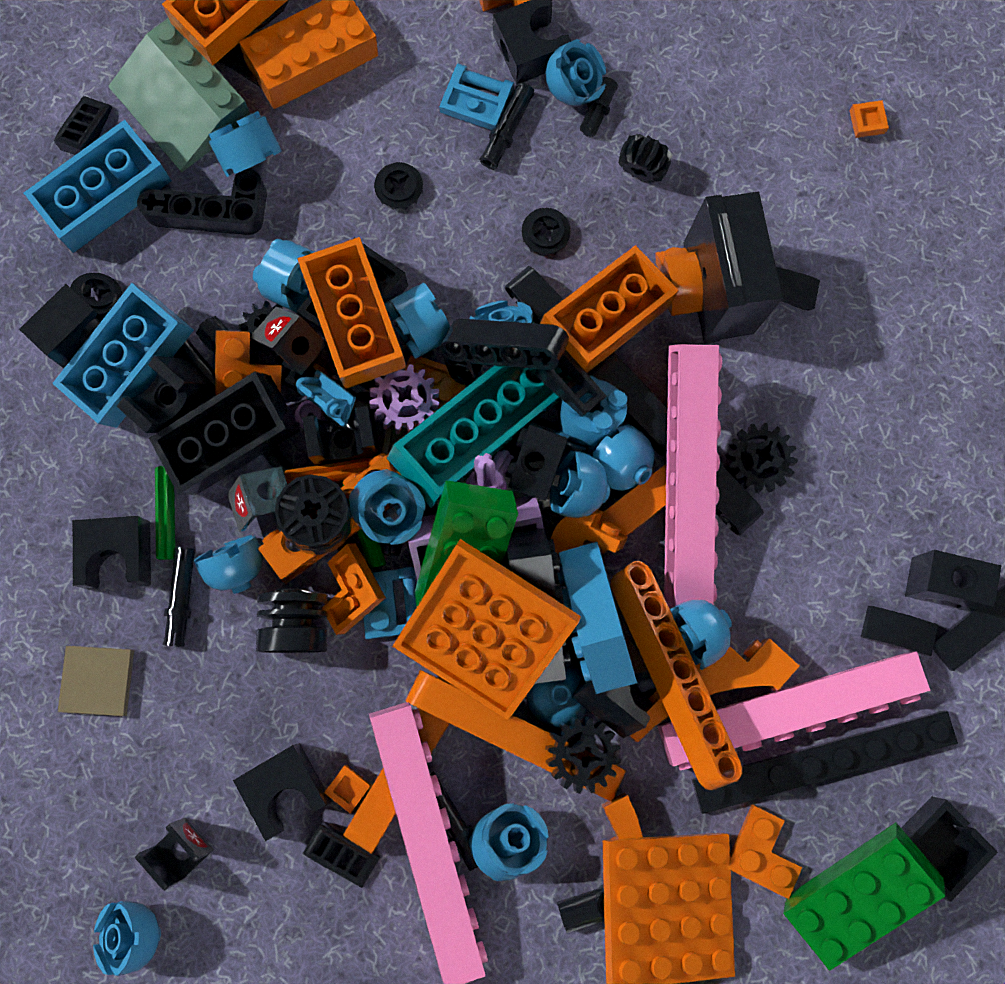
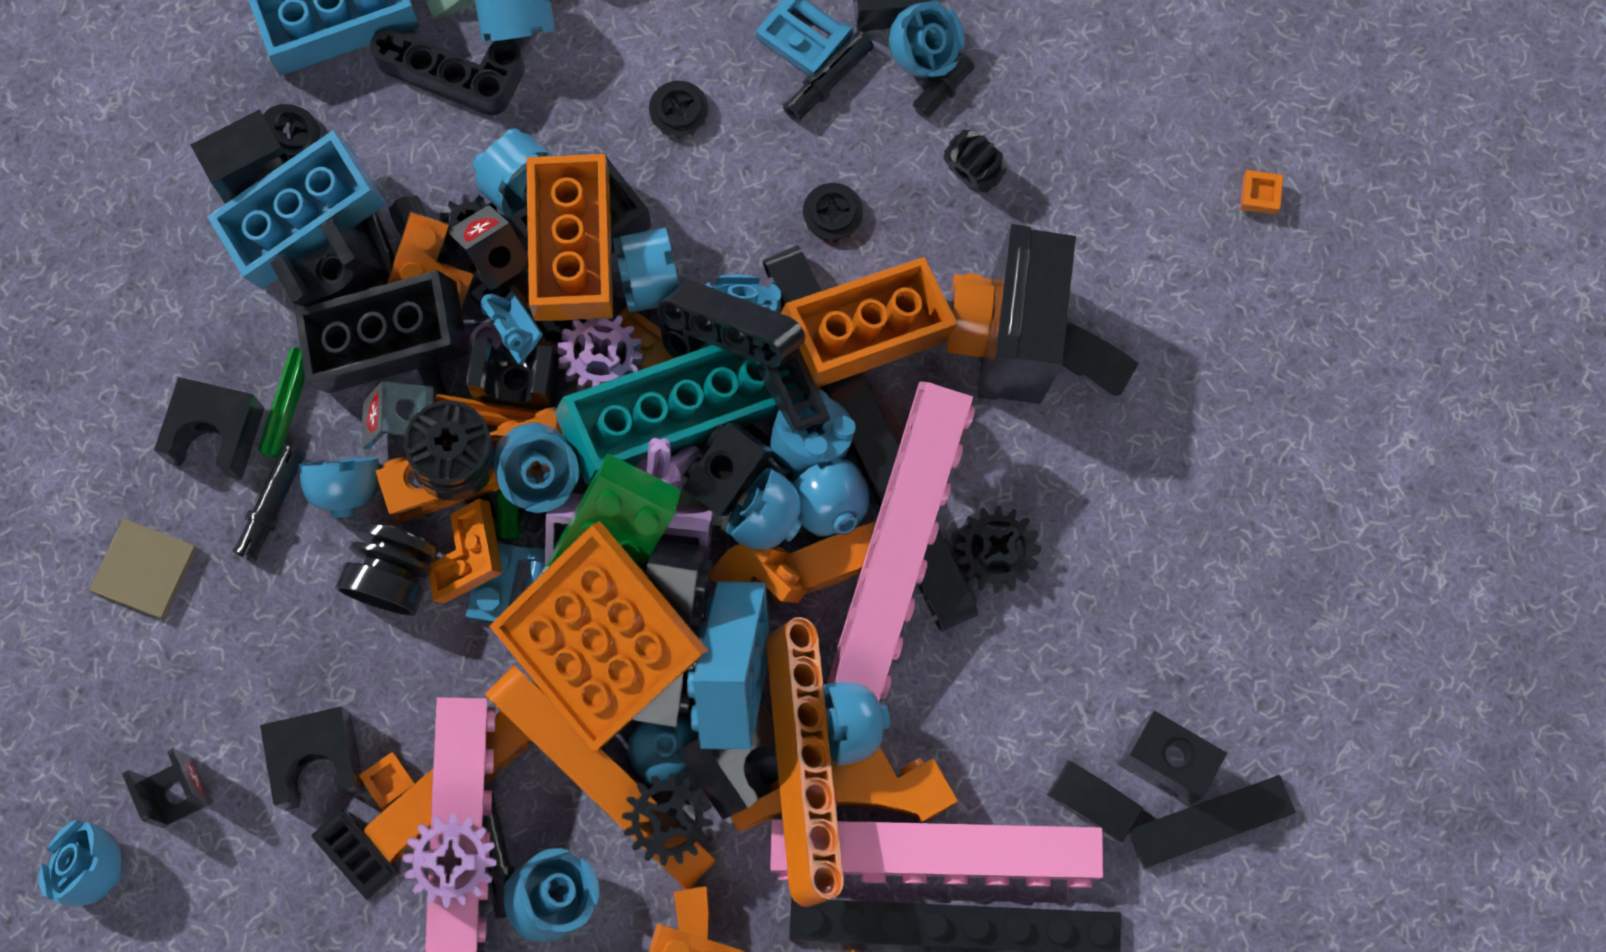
camera: 15 degrees right, 5 degrees down
(410, 848) = (429, 859): none -> lavender gear

